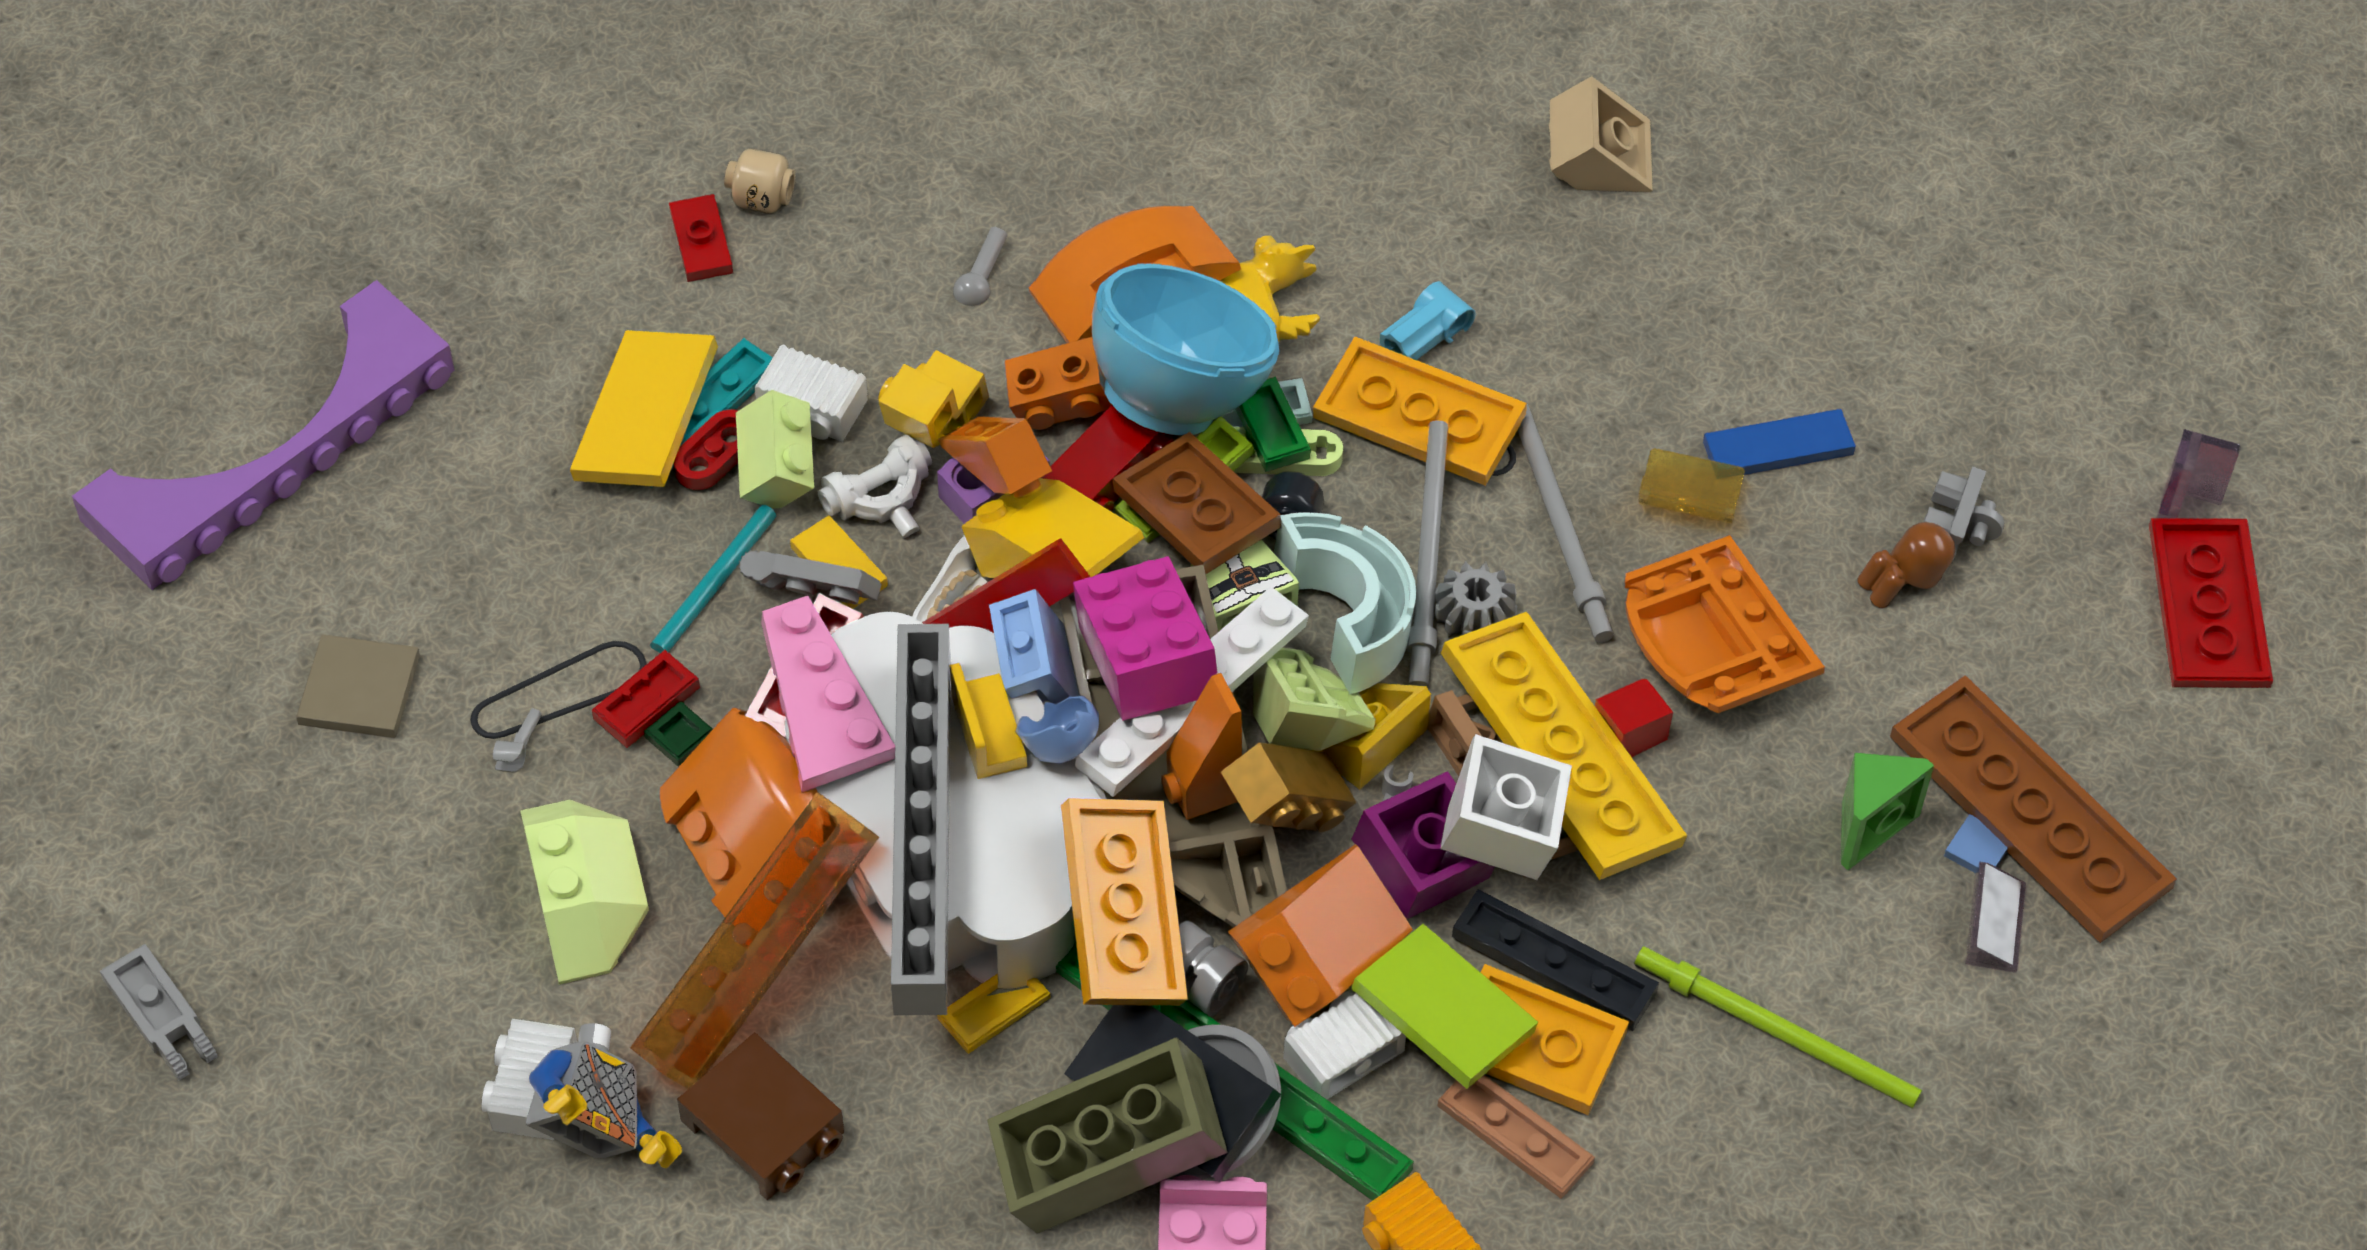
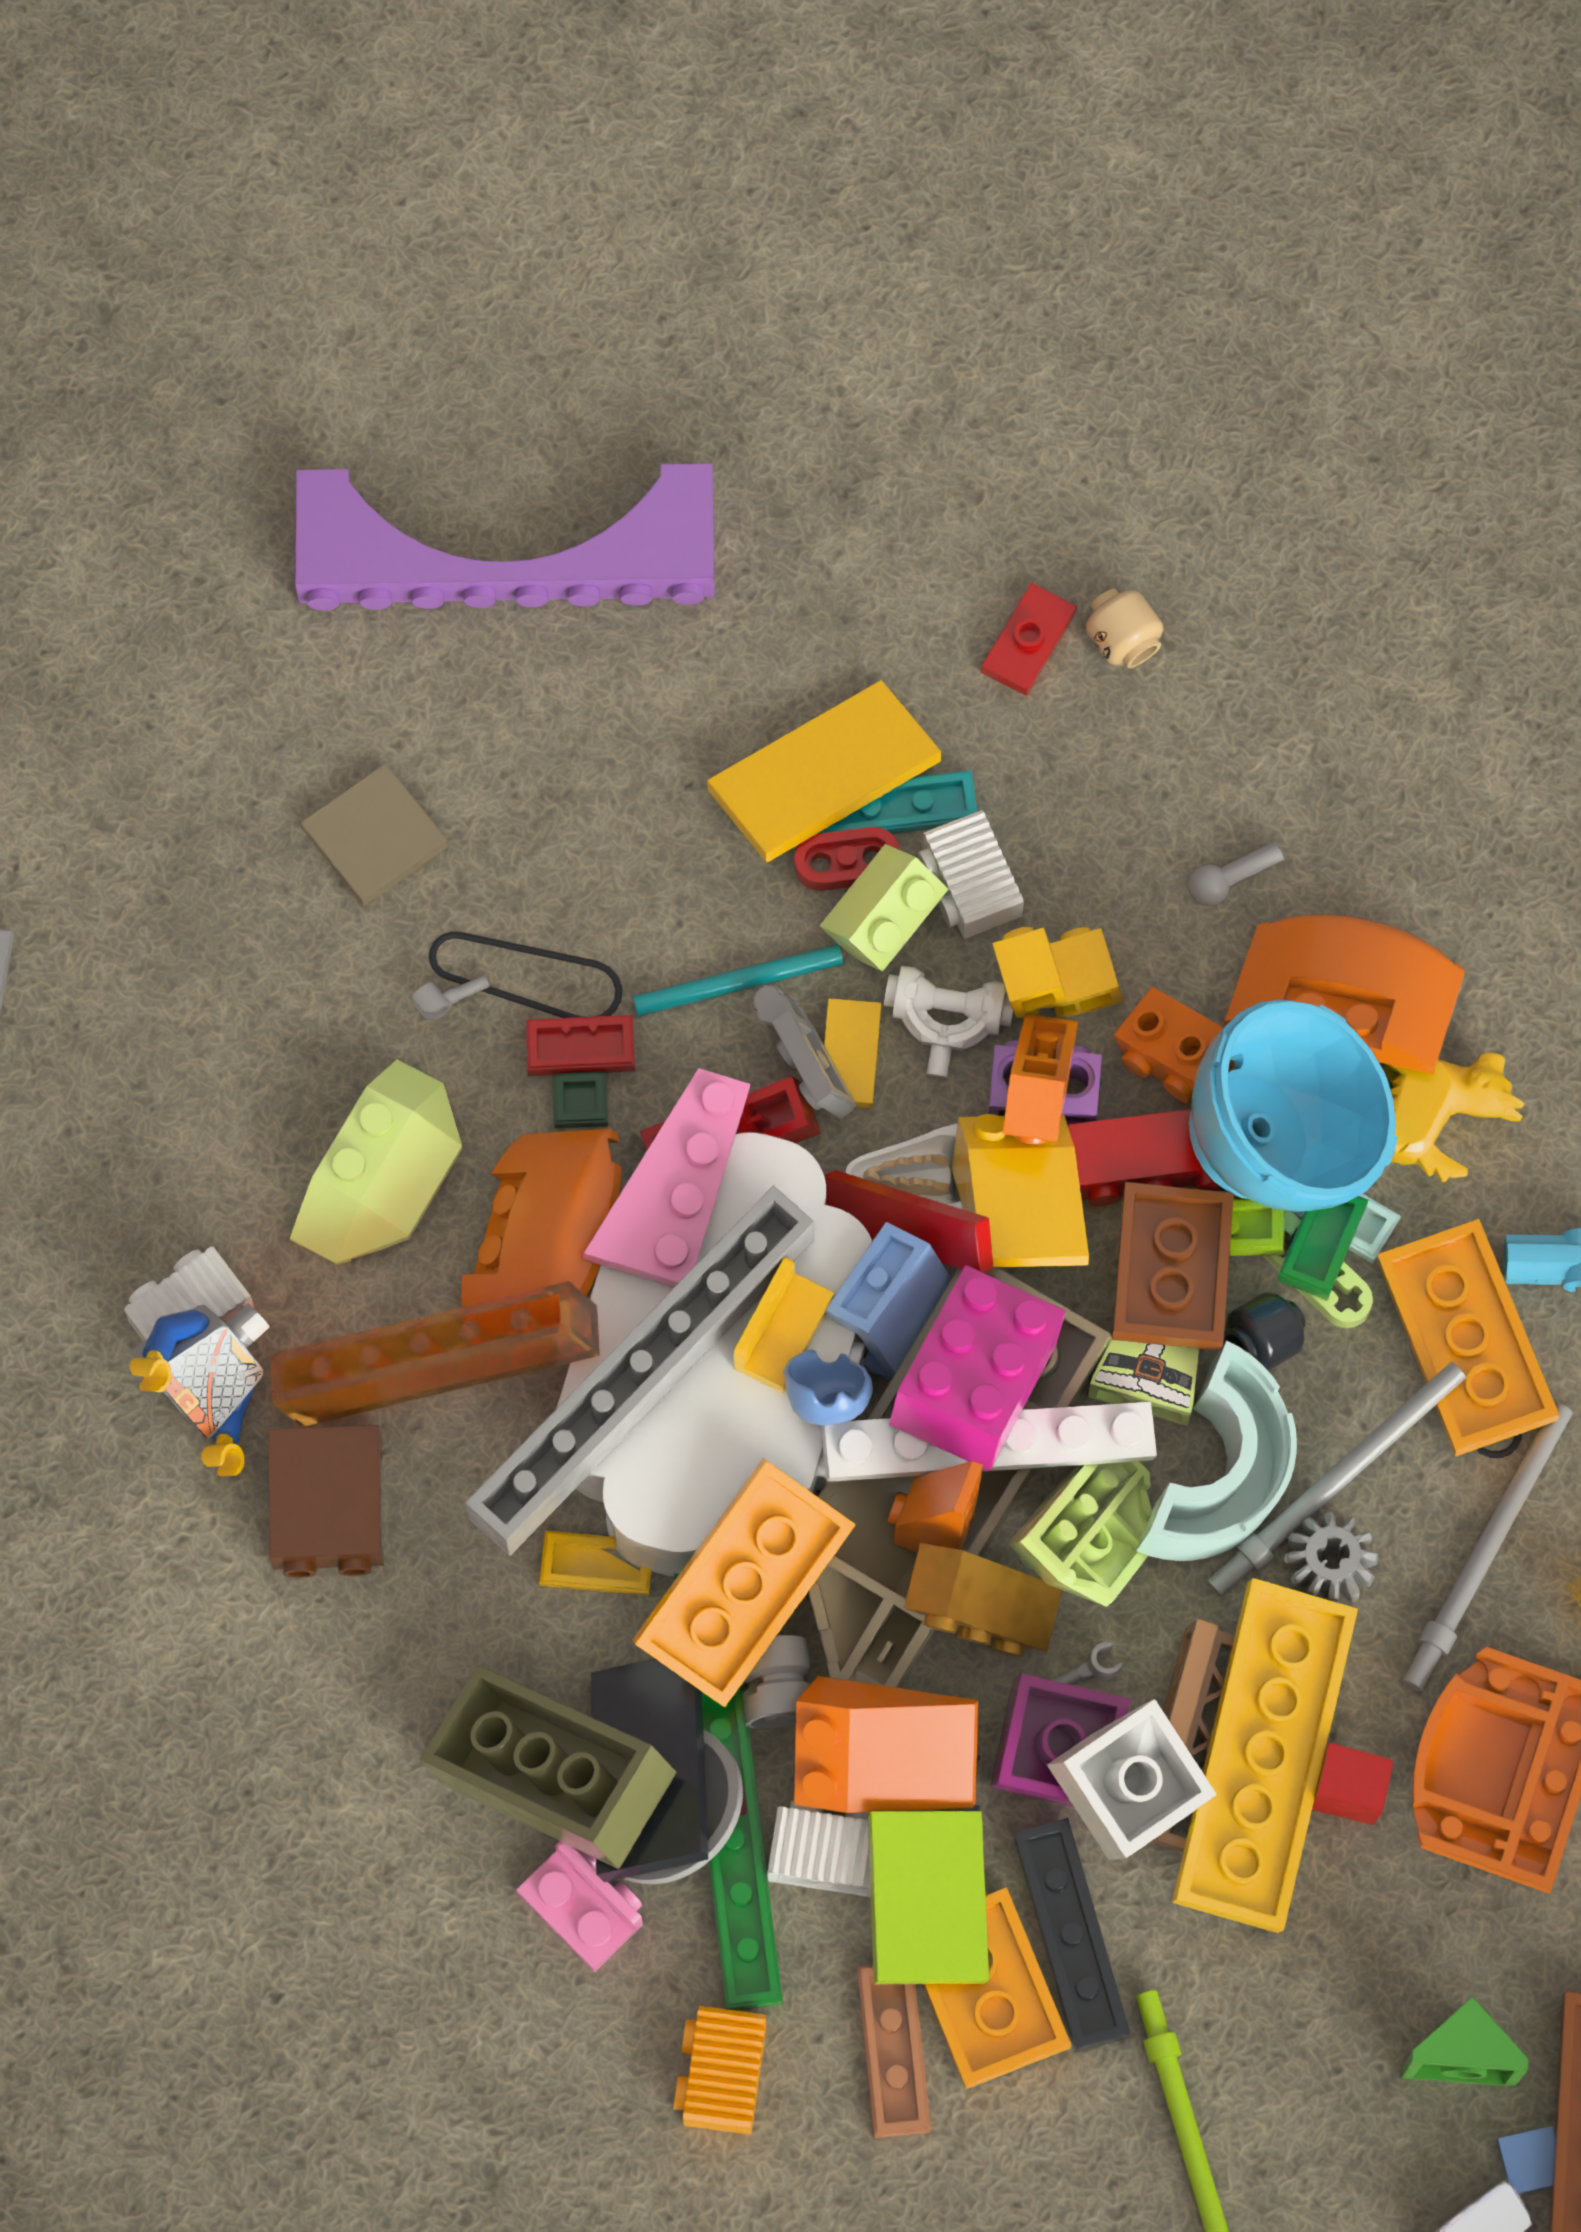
camera: 45 degrees right, 15 degrees up
(1400, 719) = (1146, 1606): yellow slope -> none

